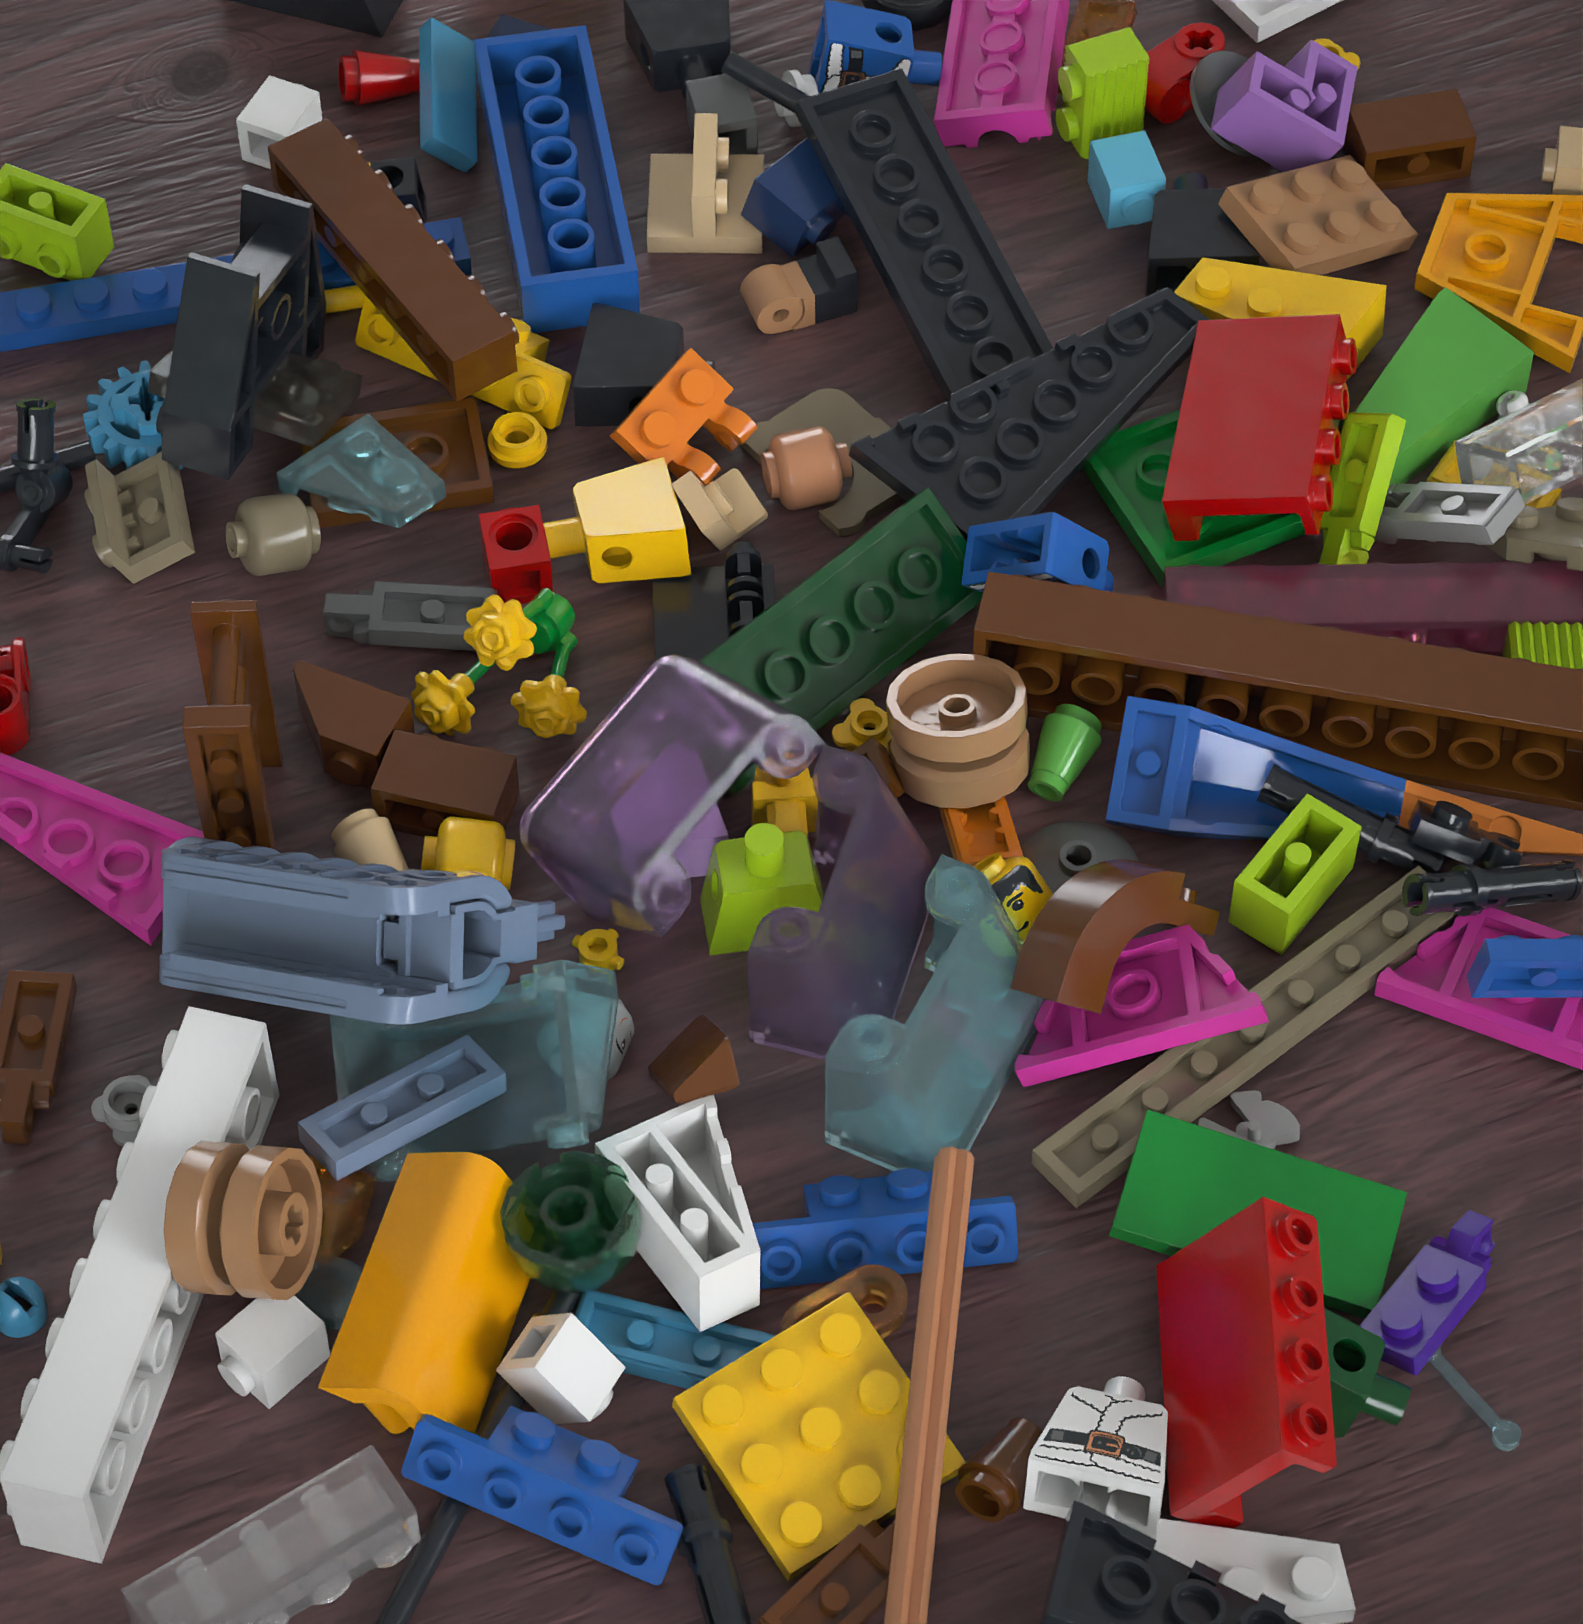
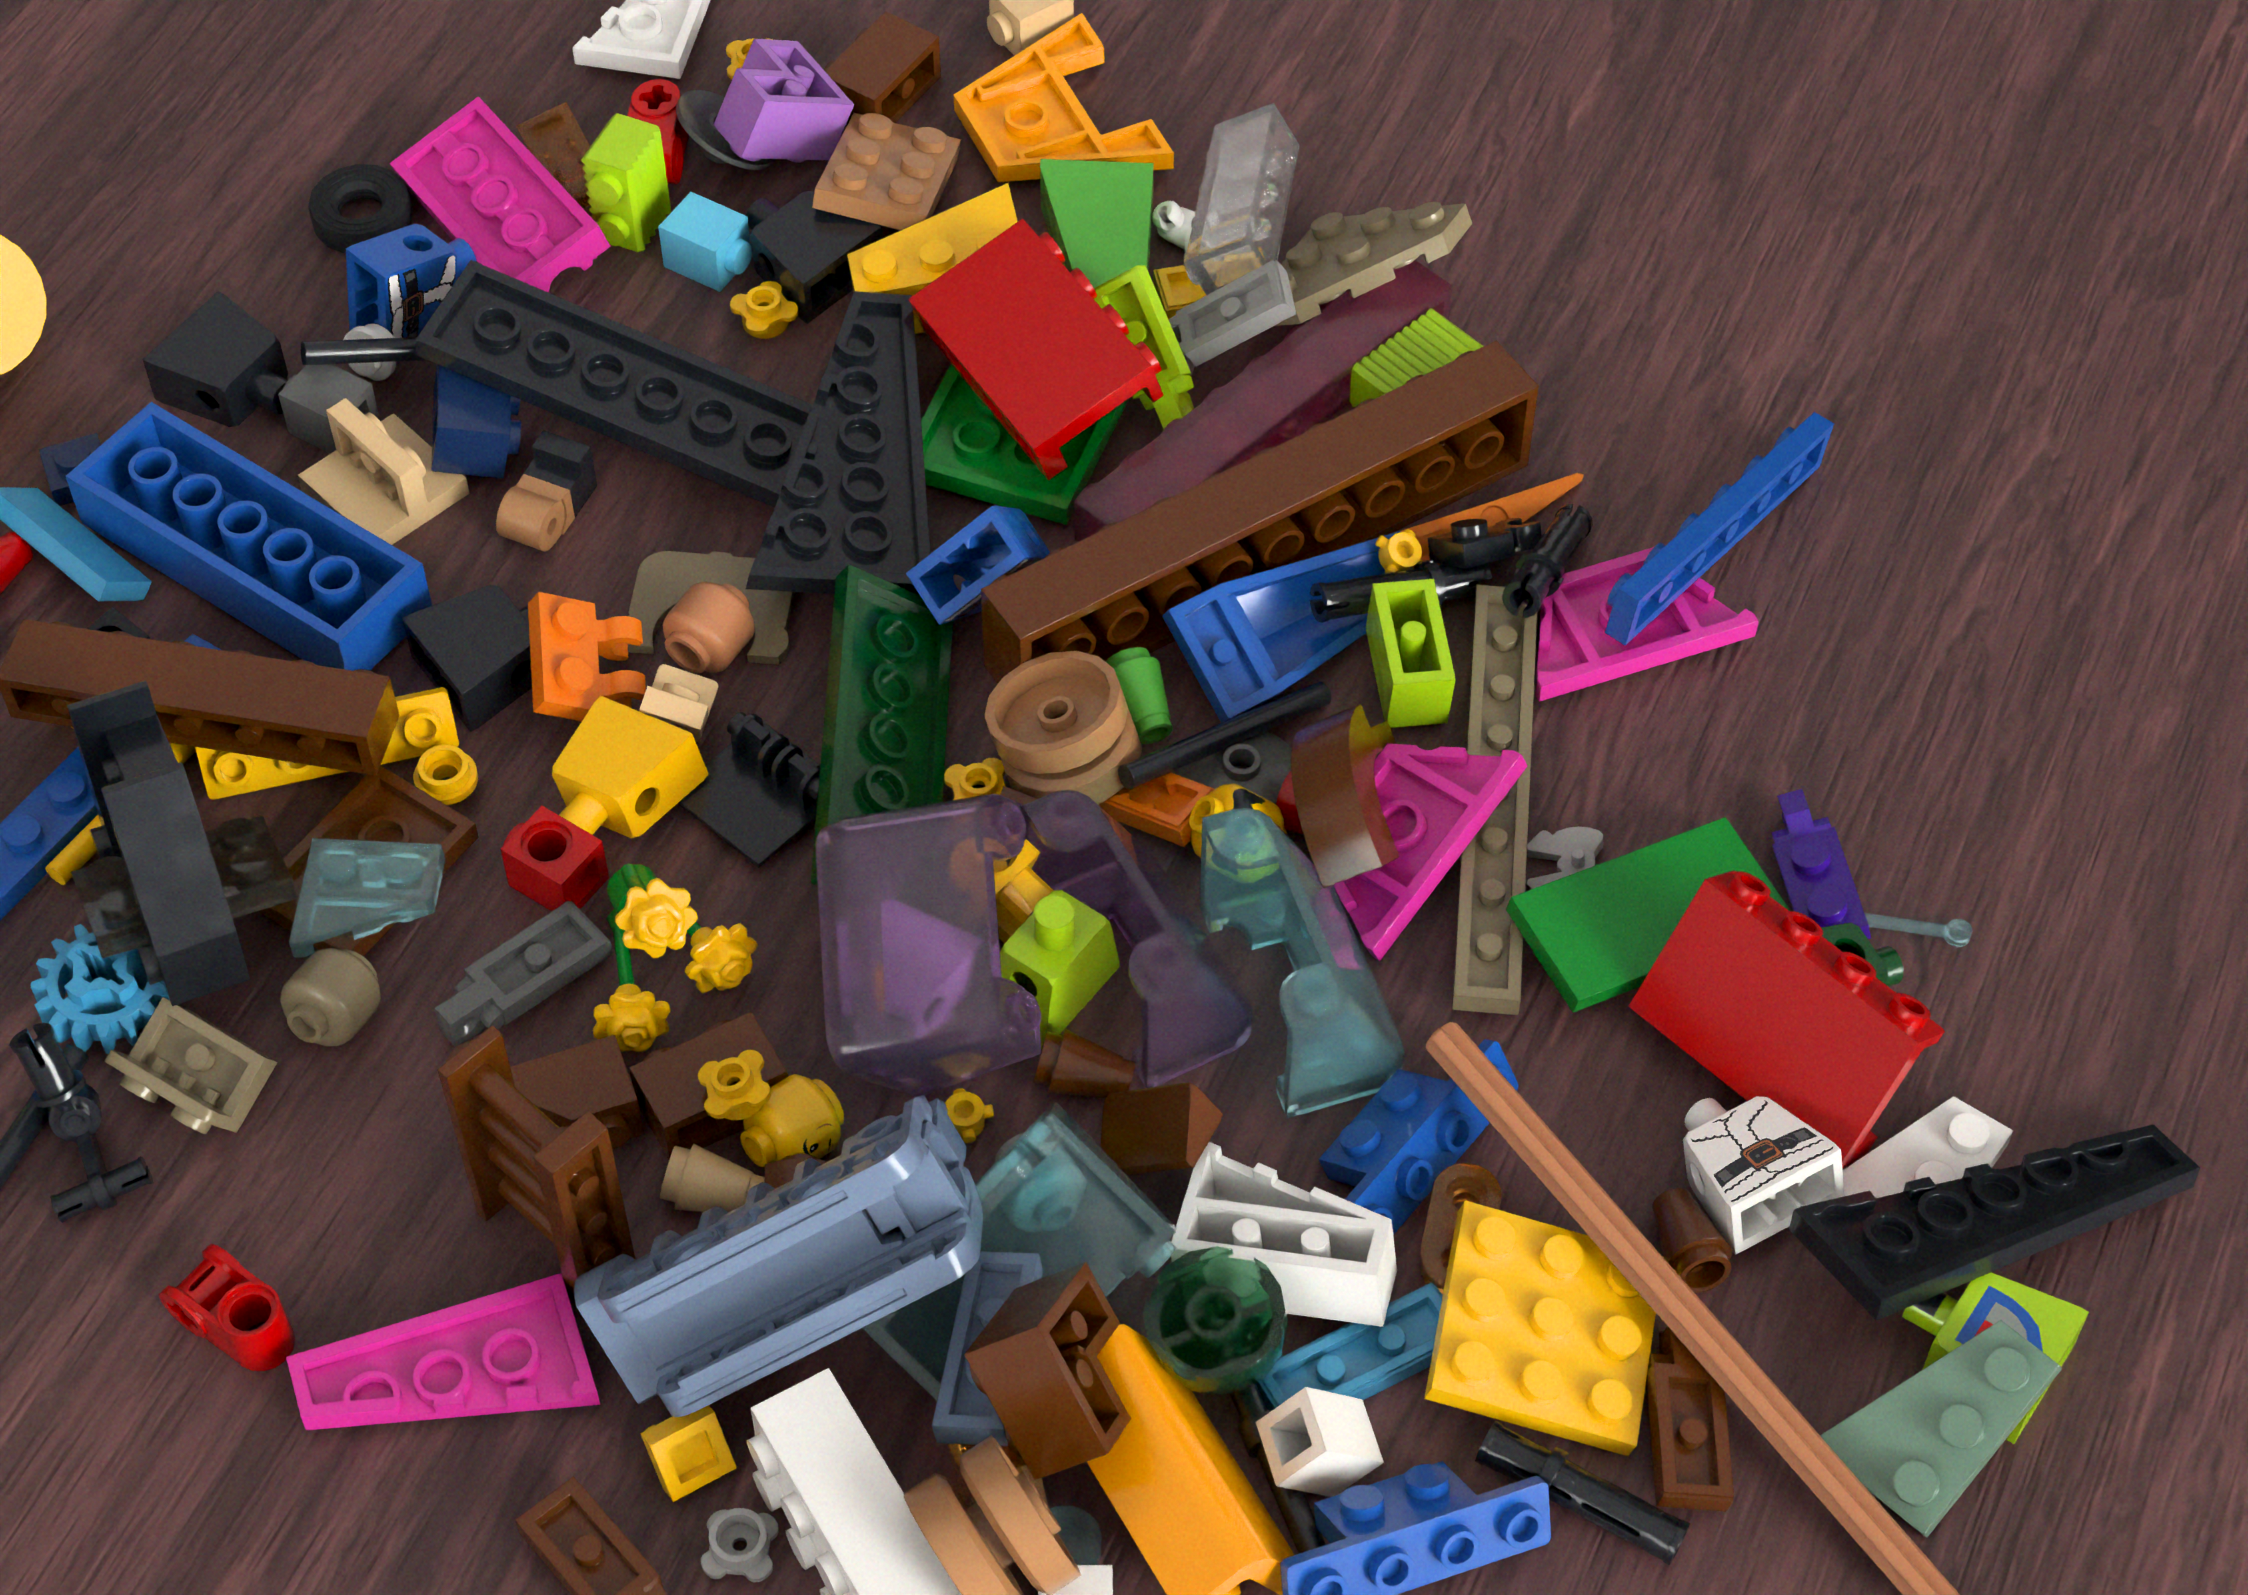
camera: 45 degrees left, 0 degrees up
(154, 1012) = (688, 1452): none -> yellow tile
(381, 1139) = (1045, 1371): none -> reddish brown brick
(438, 795) = (737, 1100): none -> yellow plate
(709, 982) = (1081, 1067): none -> reddish brown cone
(1087, 828) = (1224, 735): none -> black bar
(1117, 263) = (764, 310): none -> yellow plate
(1383, 793) = (1399, 551): none -> yellow piece

